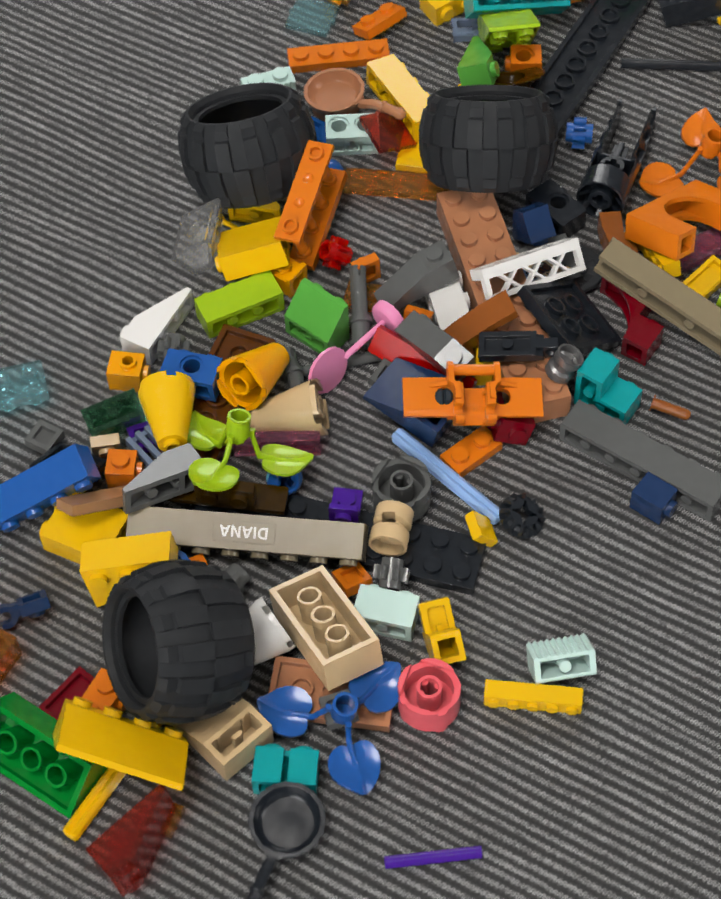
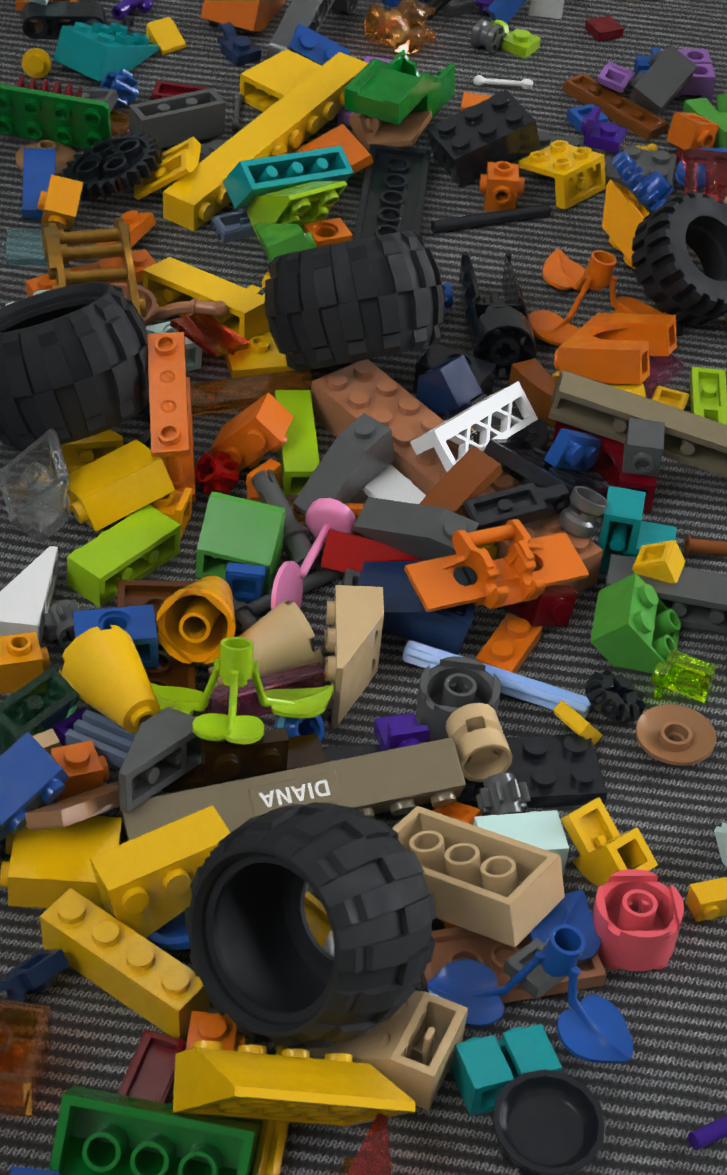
camera: 30 degrees left, 15 degrees down
(79, 608) = (124, 963): none -> yellow brick
(300, 40) = (58, 254): none -> pearl gold fence
(307, 347) = (245, 581): none -> blue tile
(348, 426) = (352, 644): none -> tan slope
(371, 228) = (254, 432): none -> orange brick
(407, 235) = (300, 452): none -> lime brick
(549, 549) = (675, 734): none -> medium nougat dish
(568, 464) = (634, 625): none -> bright green slope
(581, 512) = (683, 675): none -> clear neon green bracket
(598, 303) = (574, 450): none -> blue plate
(608, 418) = (660, 561): none -> yellow slope
(649, 316) = (643, 447): none -> dark grey brick
(691, 38) = (501, 186): none -> orange brick

